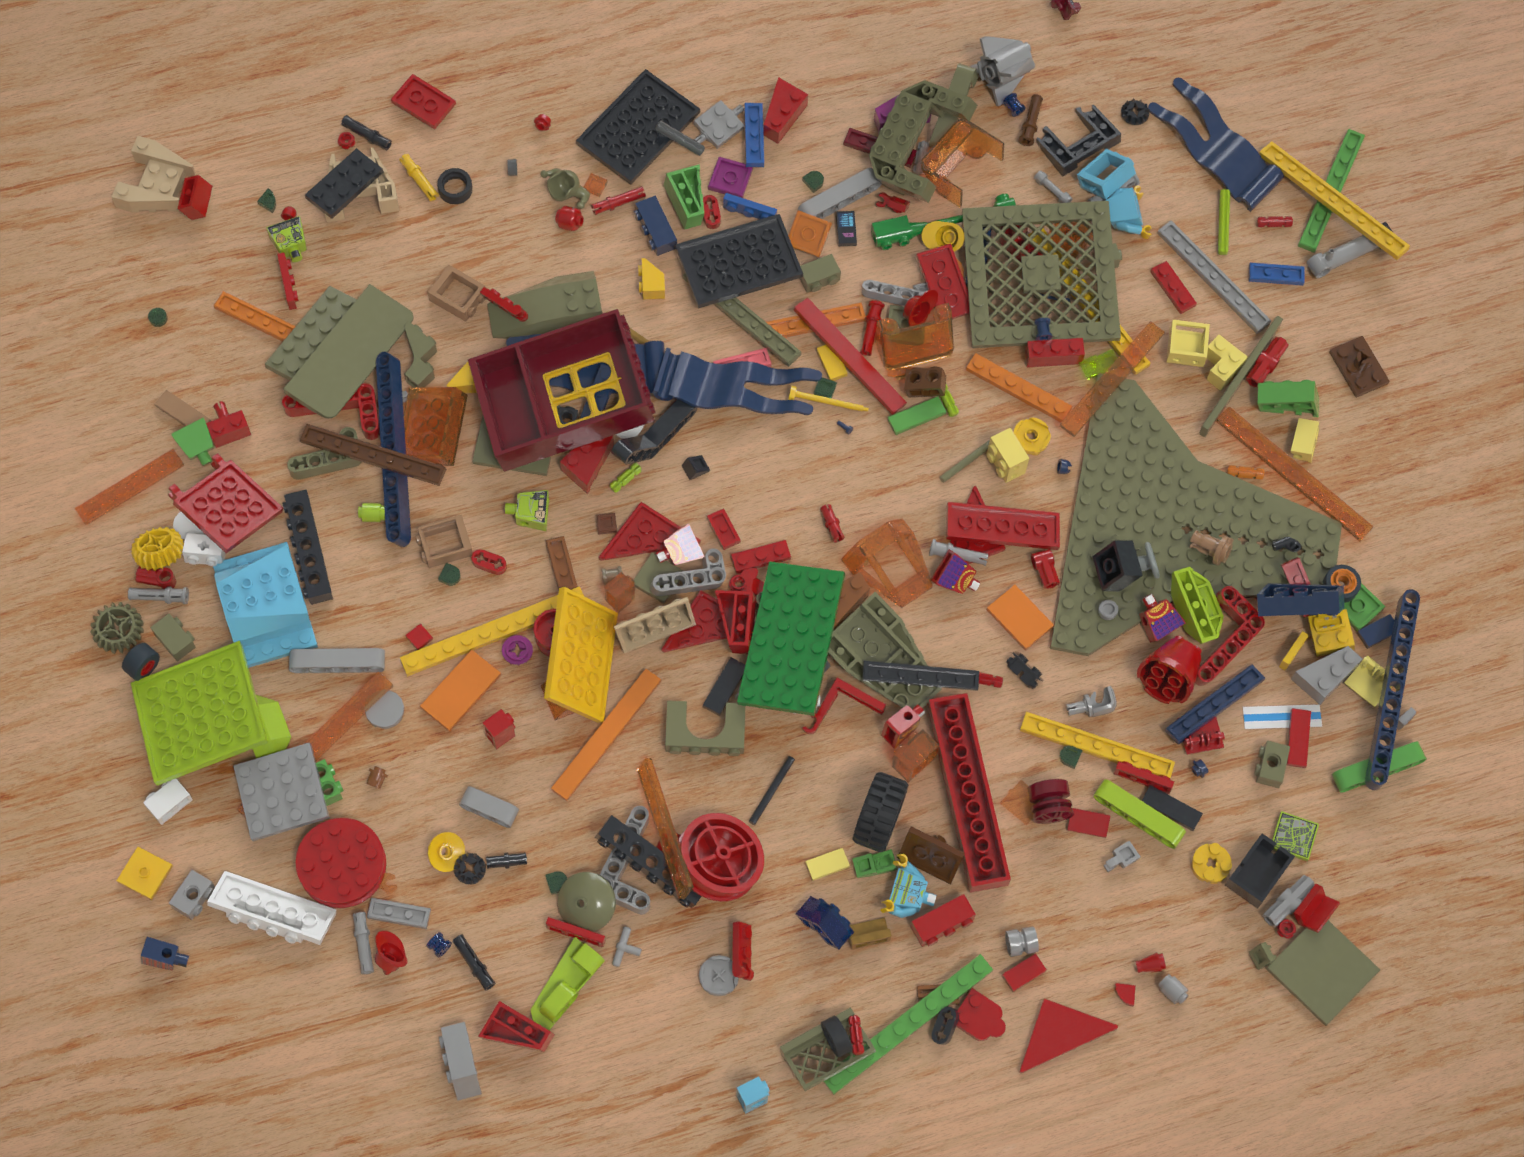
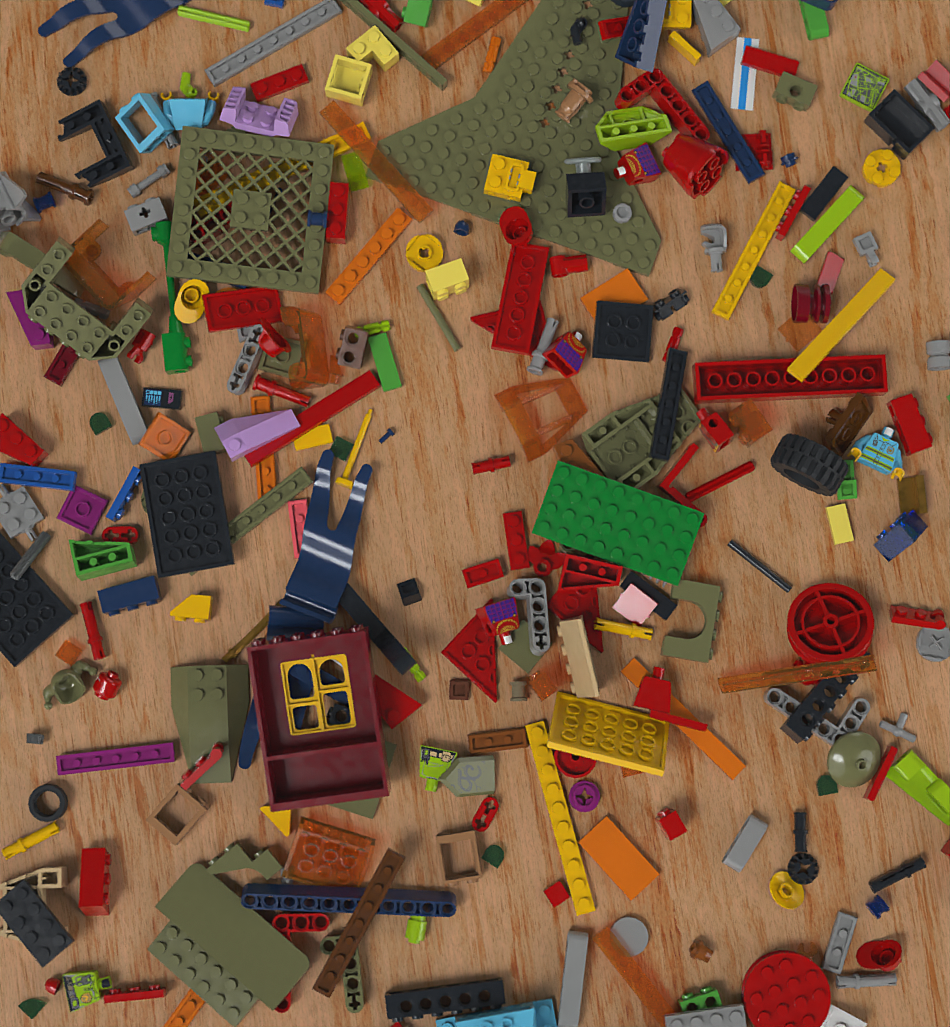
camera: 85 degrees left, 15 degrees up
(386, 232) = (95, 882): none -> red wedge
(502, 236) = (115, 758): none -> magenta plate
(523, 540) = (470, 776): none -> olive tile
(603, 723) = (677, 720): none -> red tile
(628, 698) = (654, 692): none -> red torso
(688, 665) = (623, 628): none -> yellow pin
(713, 673) = (635, 605): none -> piece
(825, 302) = (252, 432): none -> lavender wedge
(851, 741) = (720, 481): none -> red axle
(987, 626) = (622, 331): none -> black plate
(1017, 186) = (136, 217): none -> light grey brick
(1034, 834) = (841, 325): none -> yellow tile
(1072, 510) = (516, 226): none -> red piece
(1120, 498) = (509, 178): none -> yellow piece
(1134, 268) = (258, 117): none -> lavender plate
(1151, 207) = (185, 86): none -> lime arm

